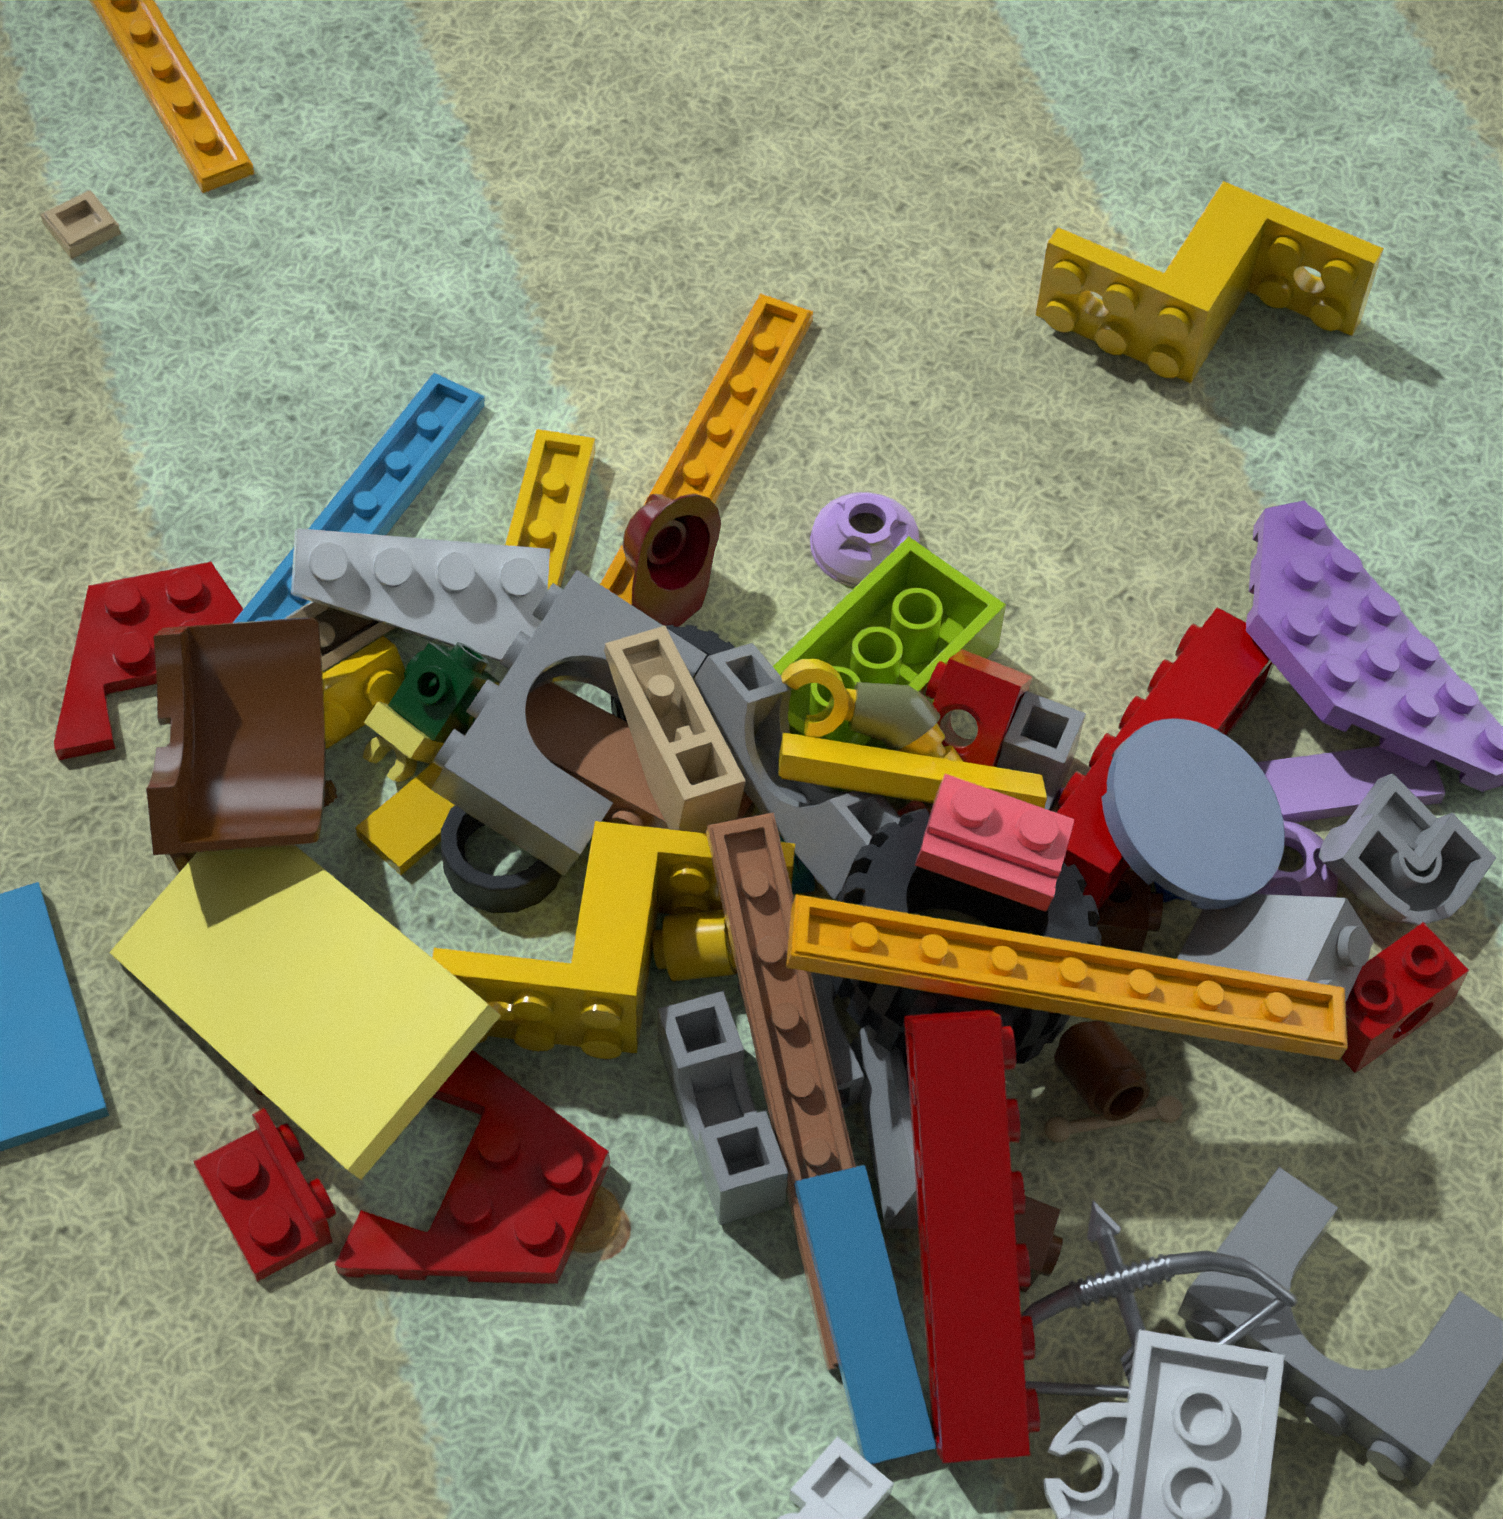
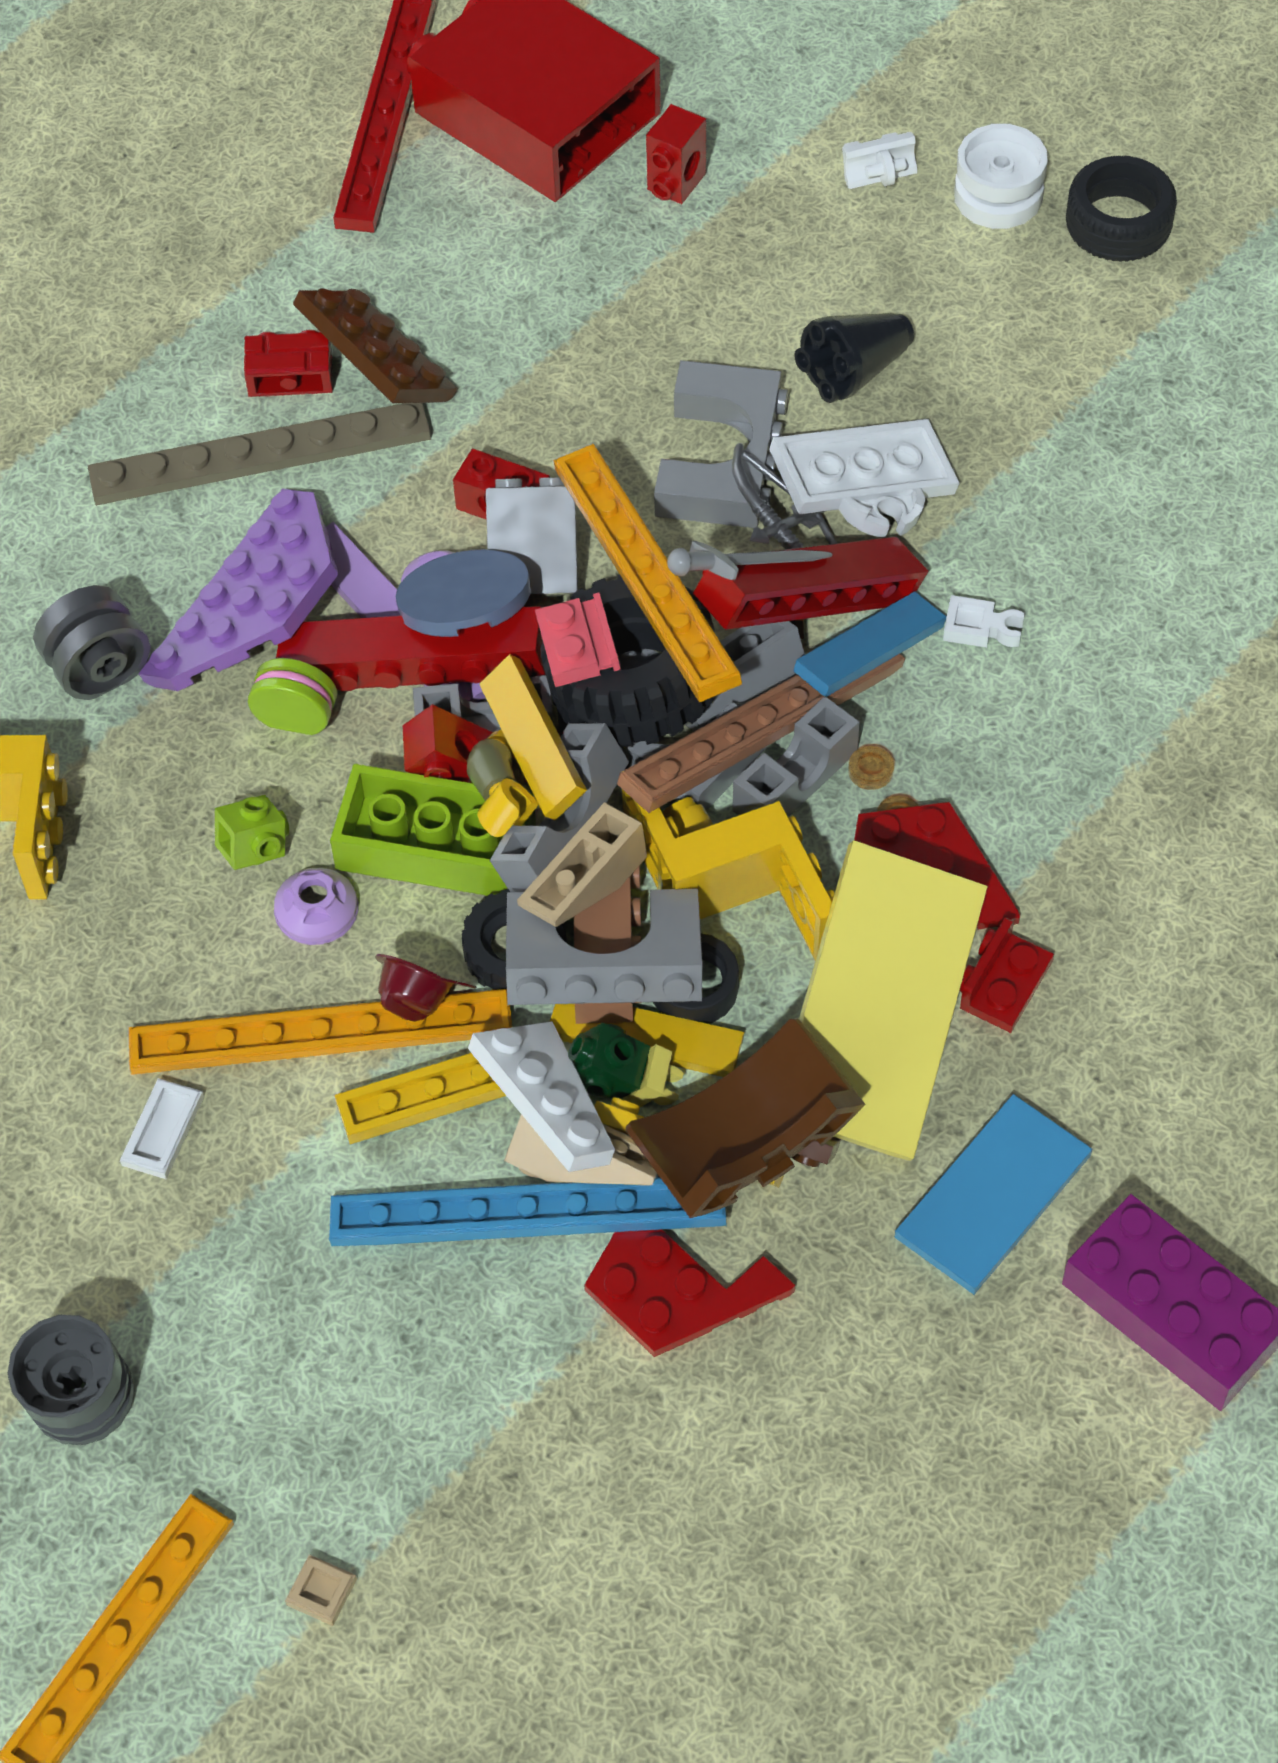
camera: 115 degrees left, 0 degrees up
(421, 98) = (60, 1356): none -> dark grey wheel
(672, 298) = (162, 1128): none -> white tile
(683, 1226) = (871, 767): none -> clear orange tile
(988, 1049) = (708, 558): none -> light grey sword
(990, 498) = (250, 832): none -> lime brick
(1161, 610) = (292, 696): none -> lime head
(1356, 442) = (91, 642): none -> flat silver wheel
(1405, 857) = (403, 515): light grey brick -> none

